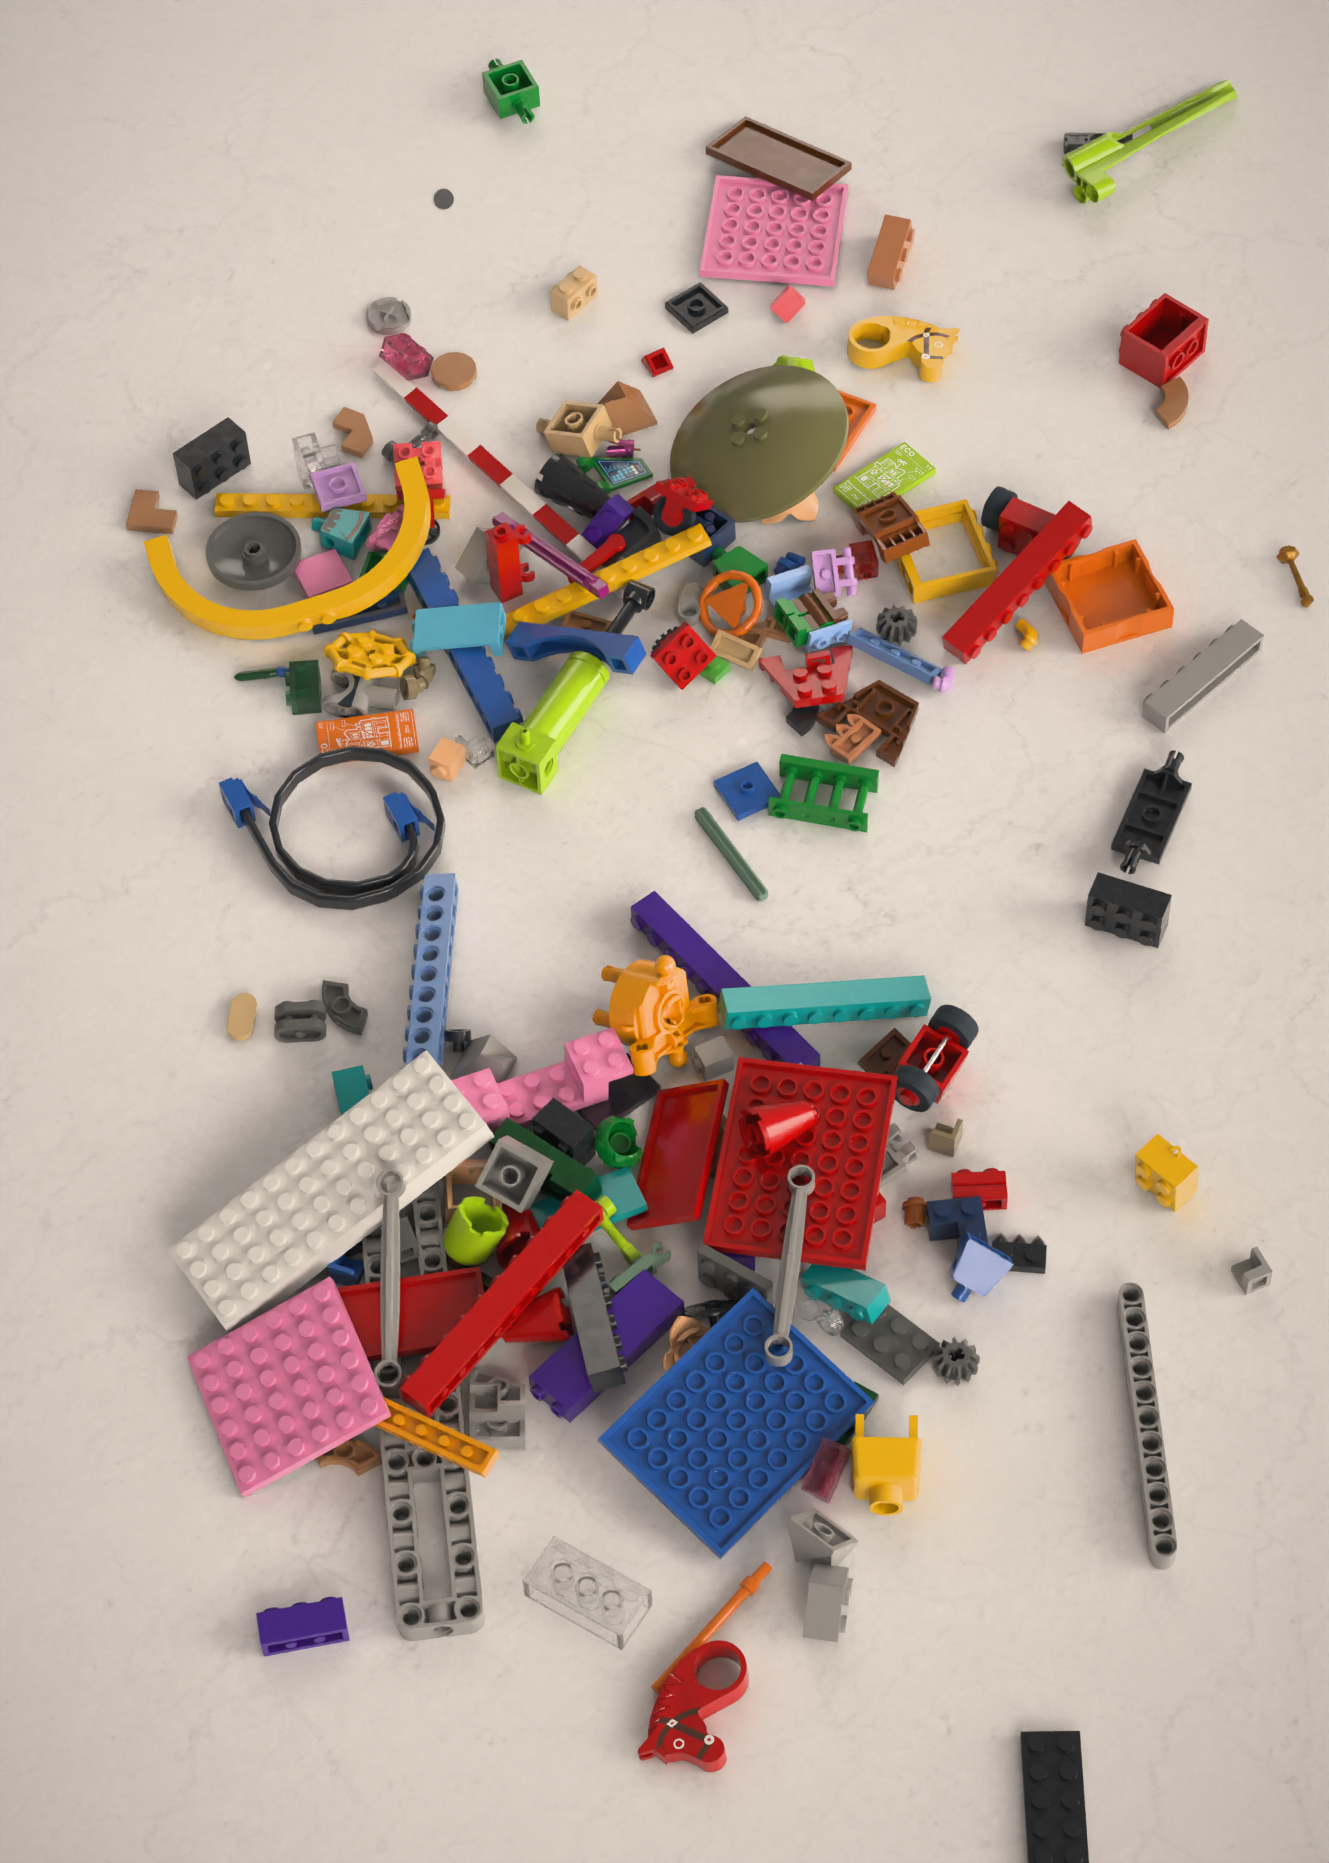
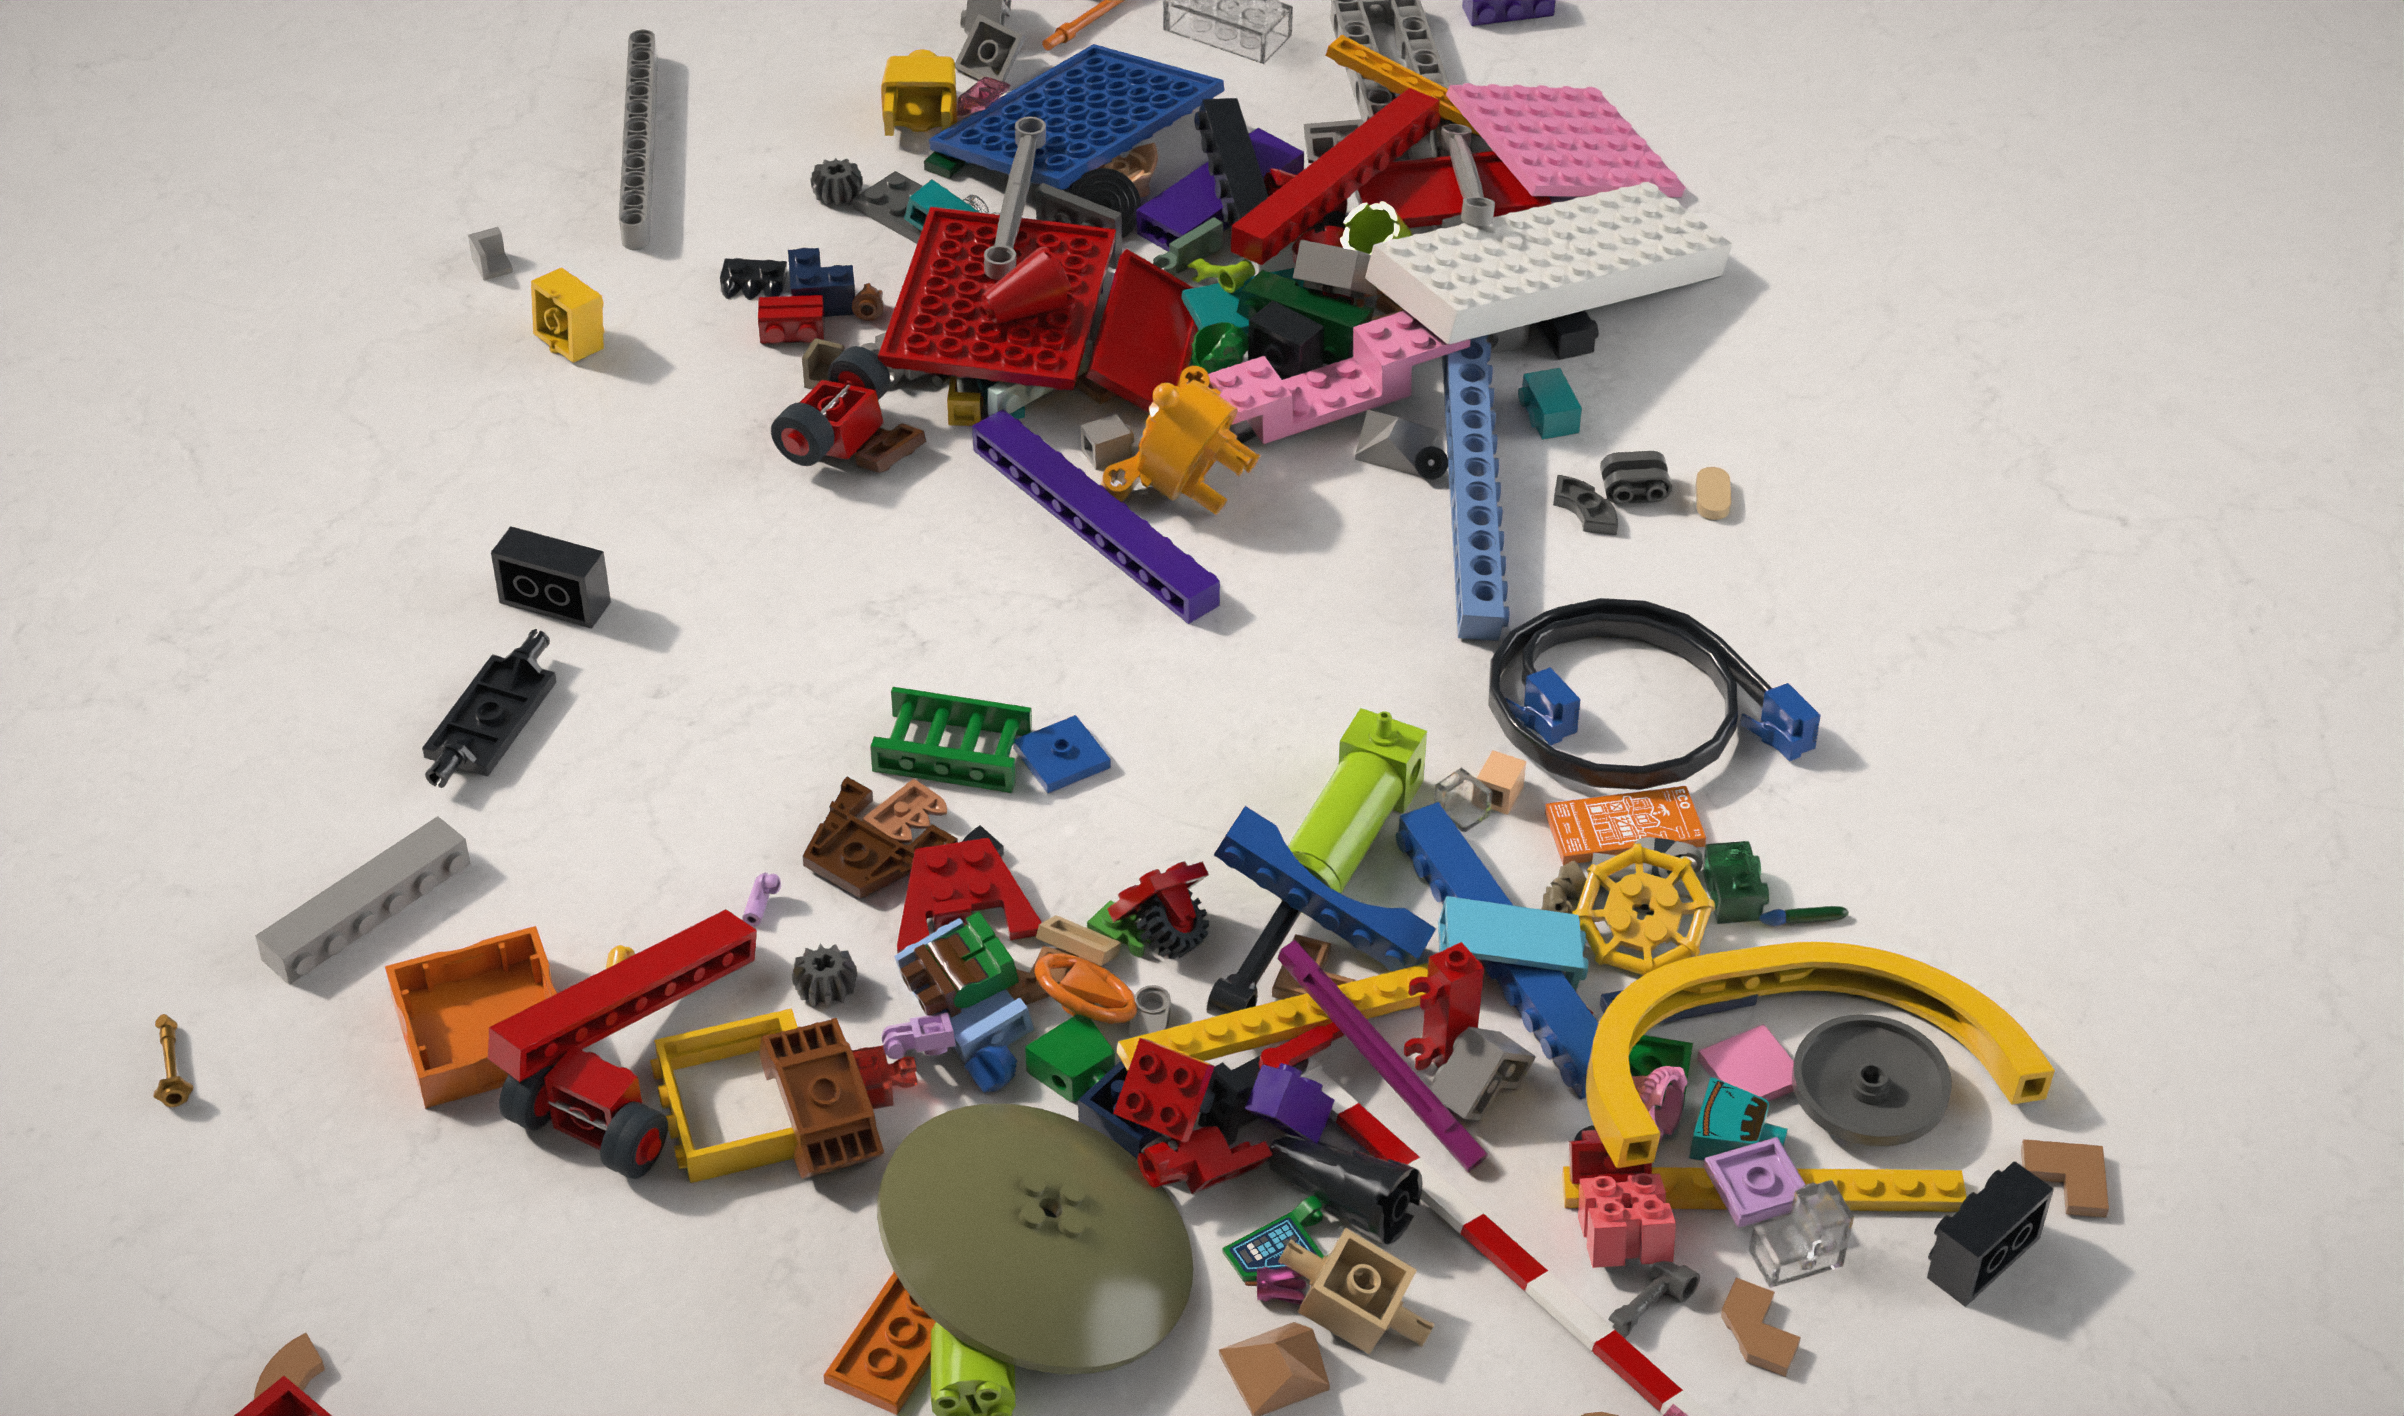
camera: 175 degrees right, 10 degrees down
(731, 854) = (1086, 674): sand green axle -> none
(824, 1002) = (963, 469): teal brick -> none
(894, 655) = (819, 925): medium blue tile -> none
(895, 471) = (814, 1236): lime tile -> none
(977, 1267) = (808, 231): torso -> none

